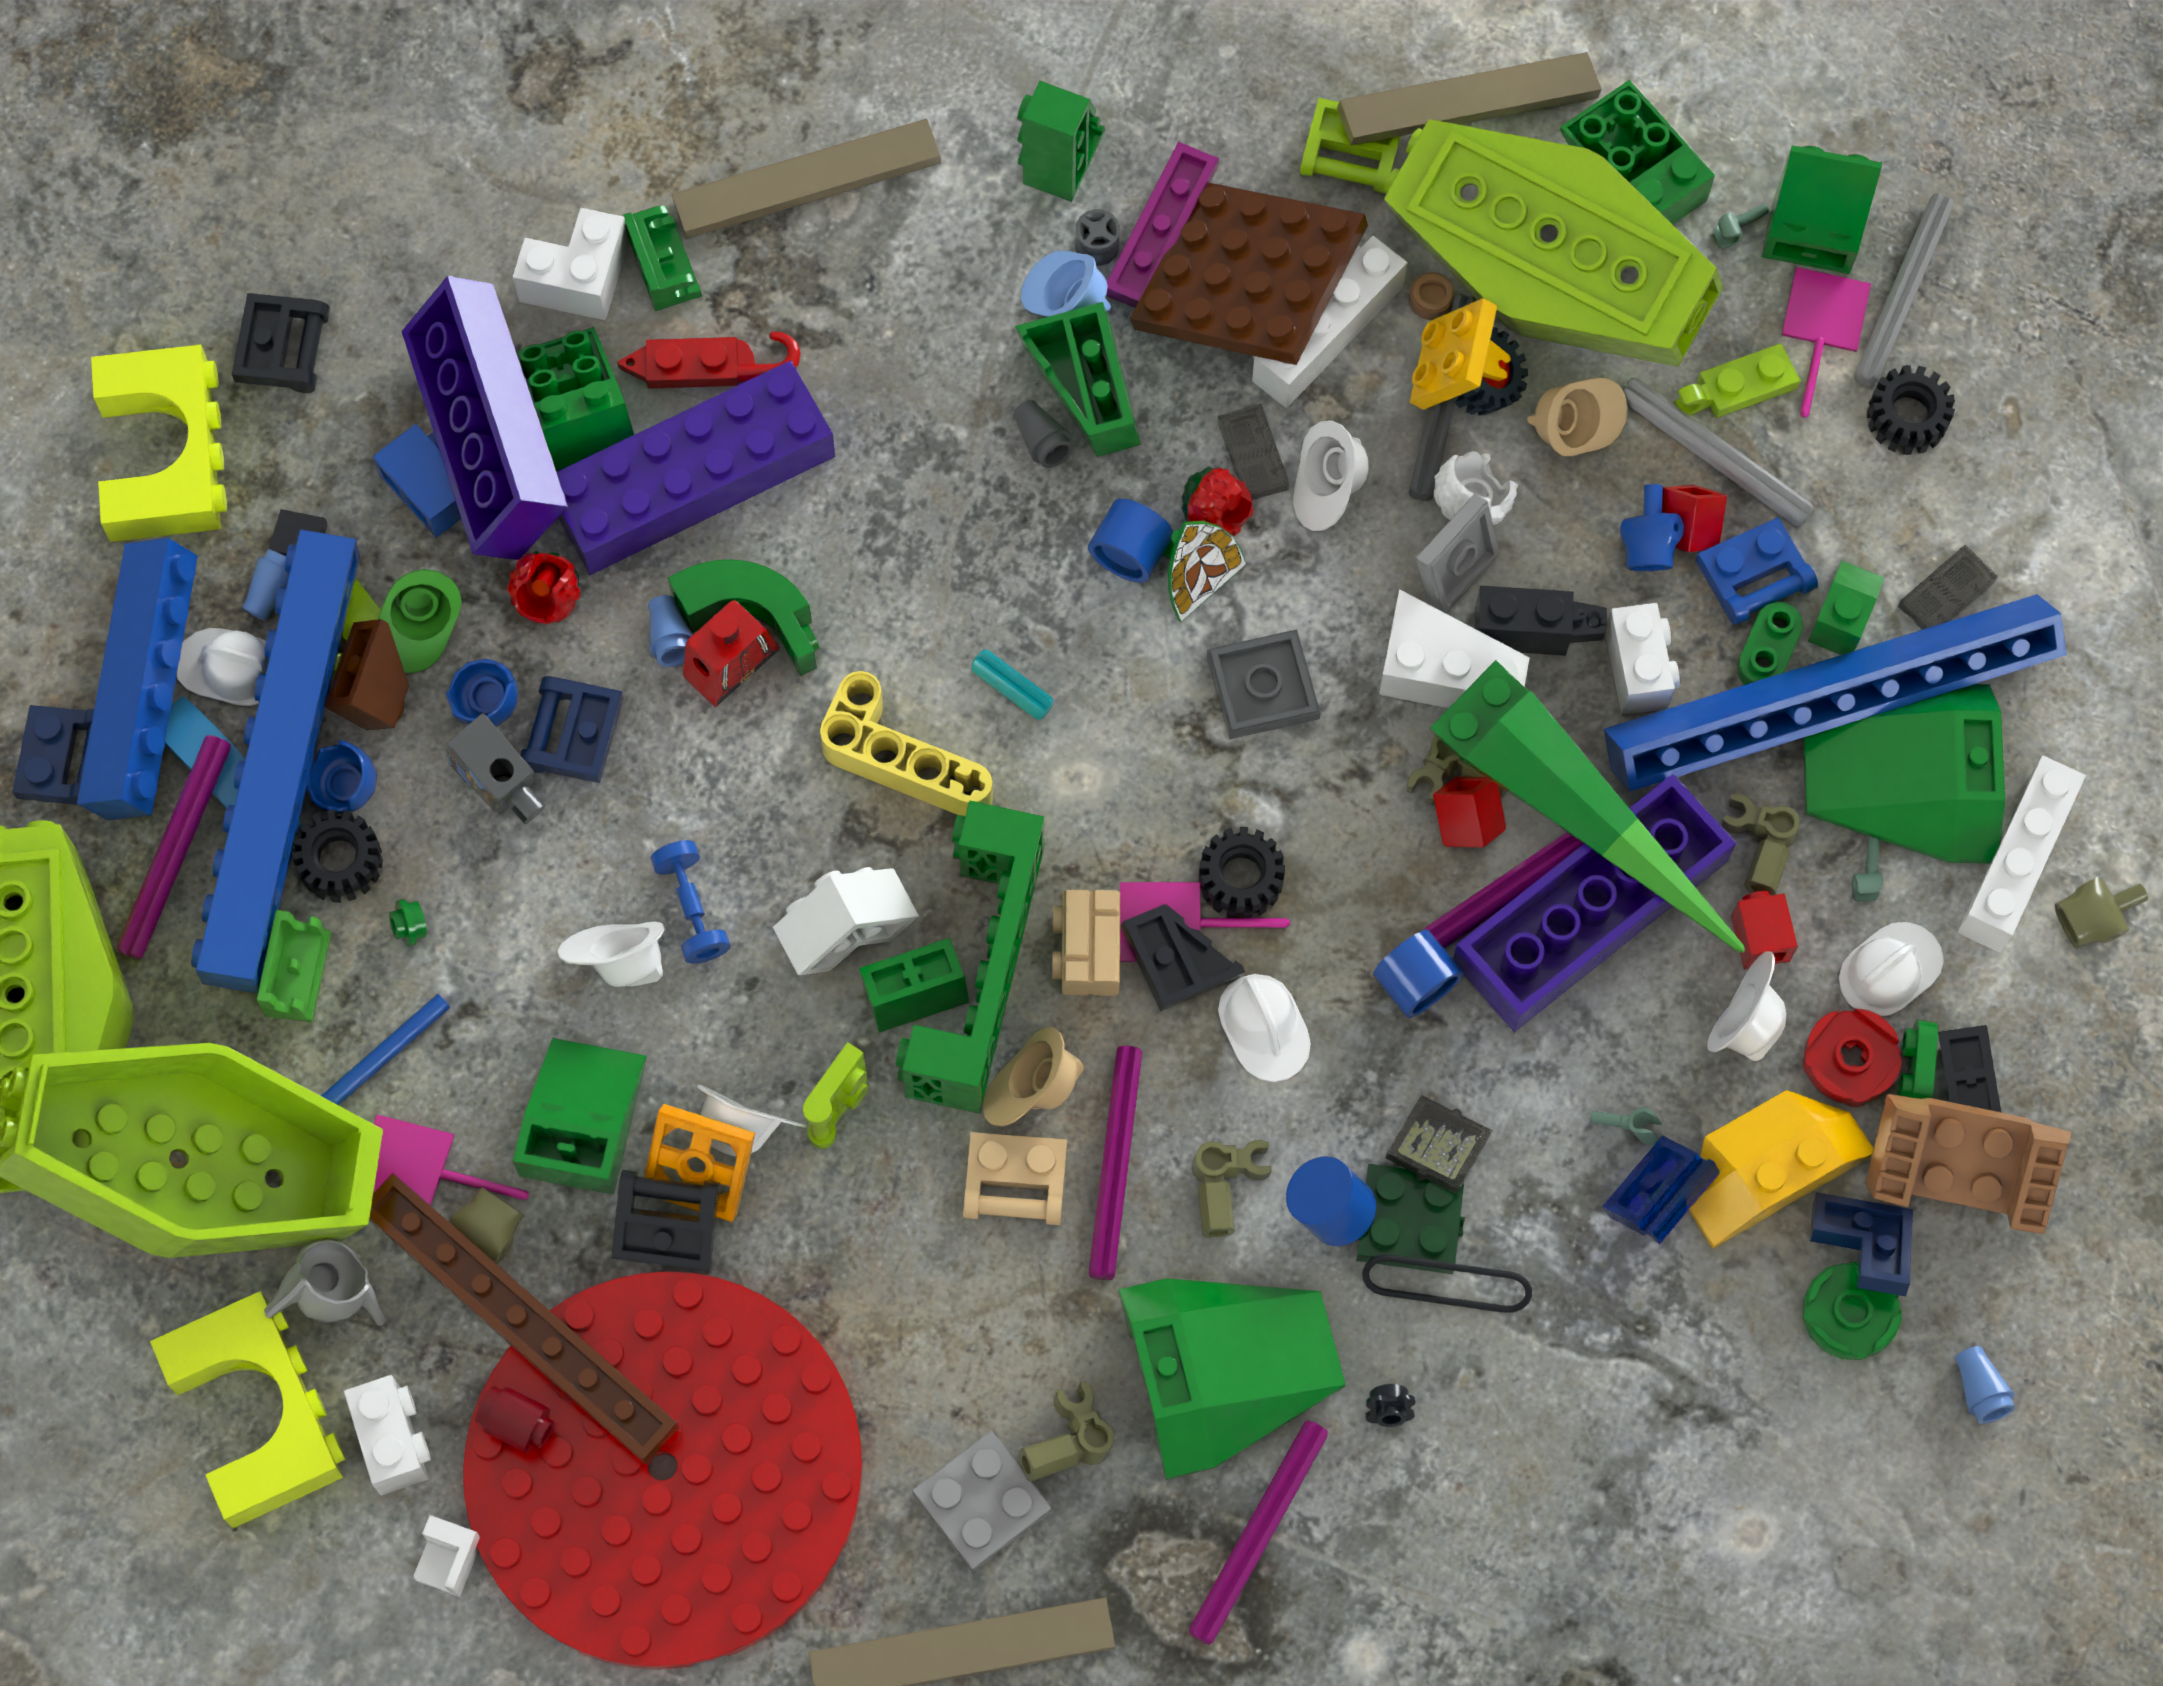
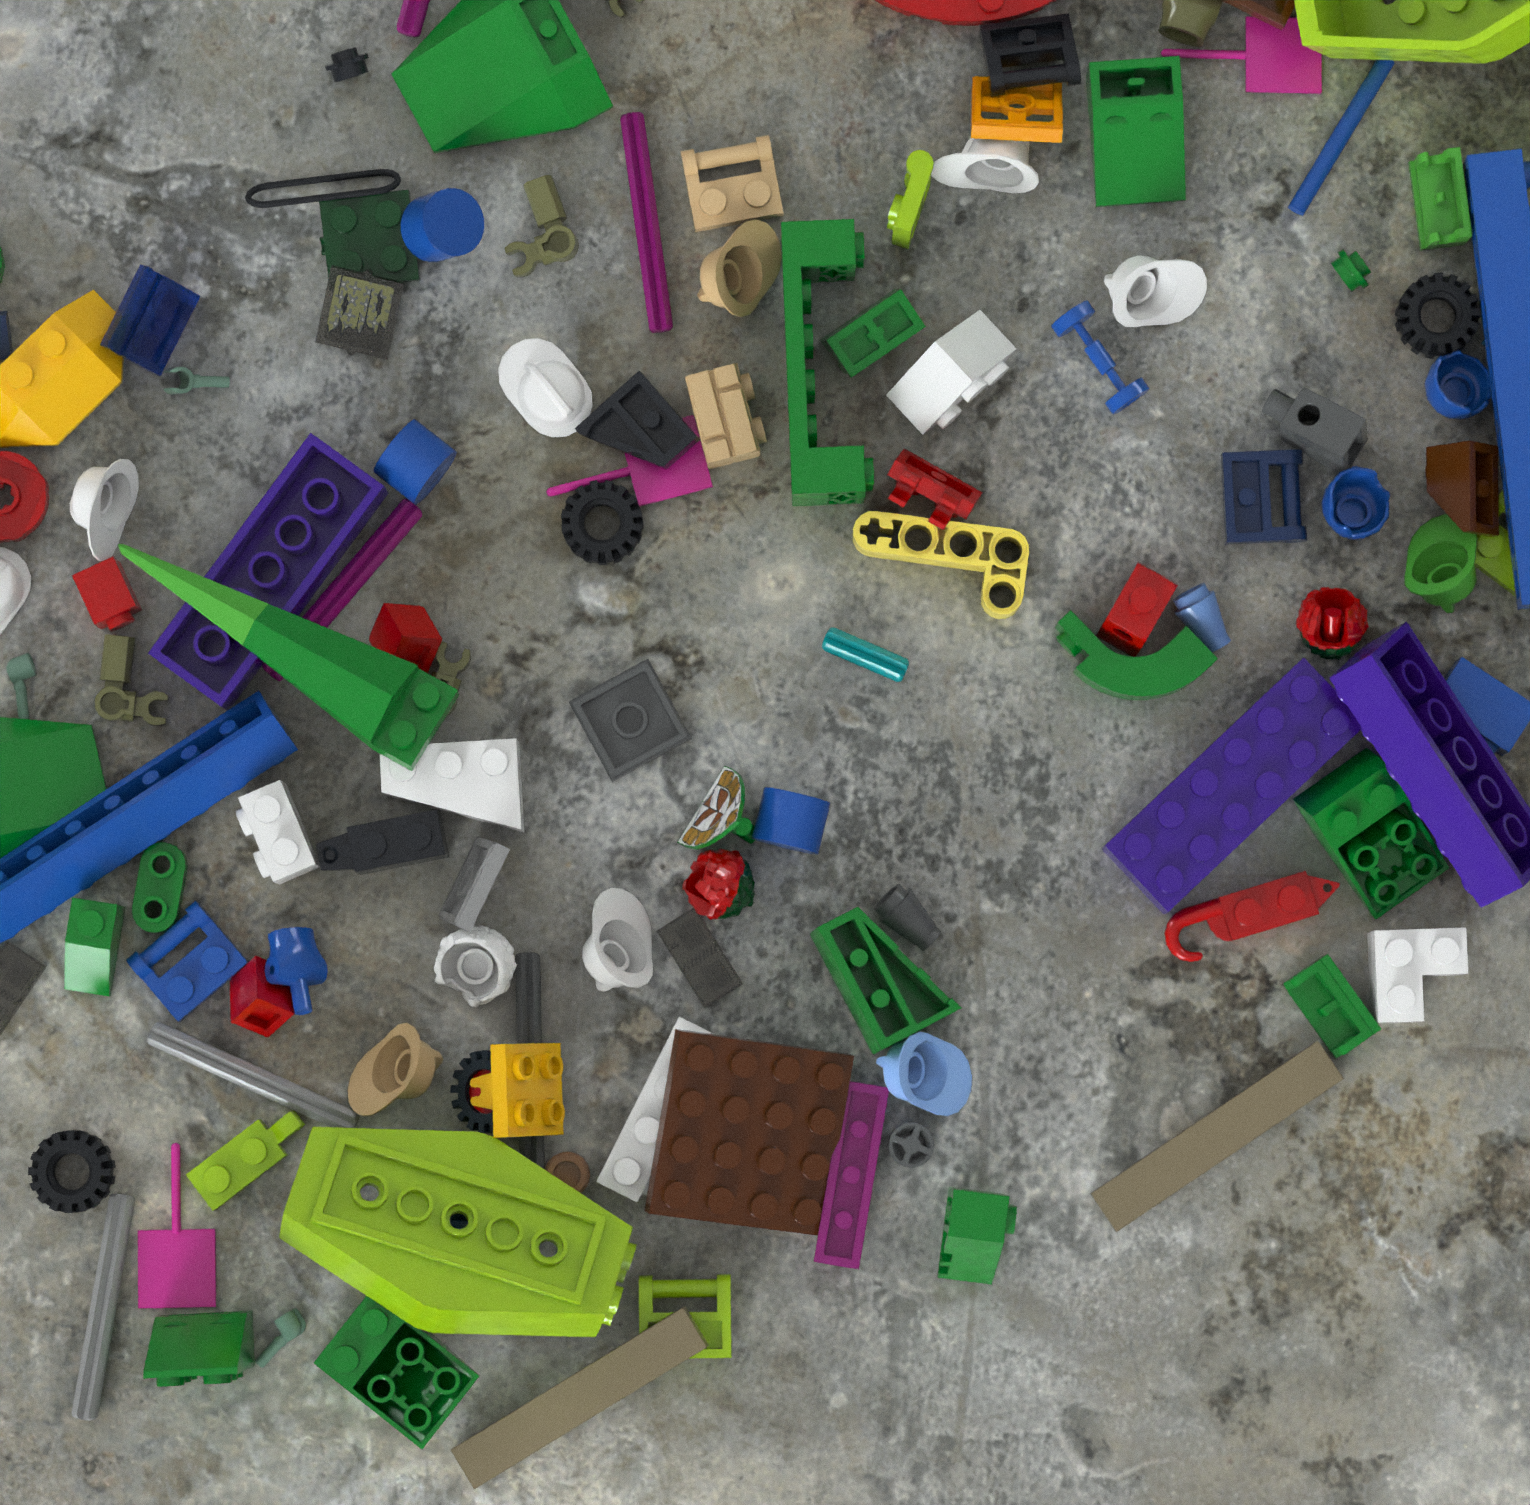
camera: 170 degrees right, 15 degrees up
(898, 824) = (921, 477): none -> red plate

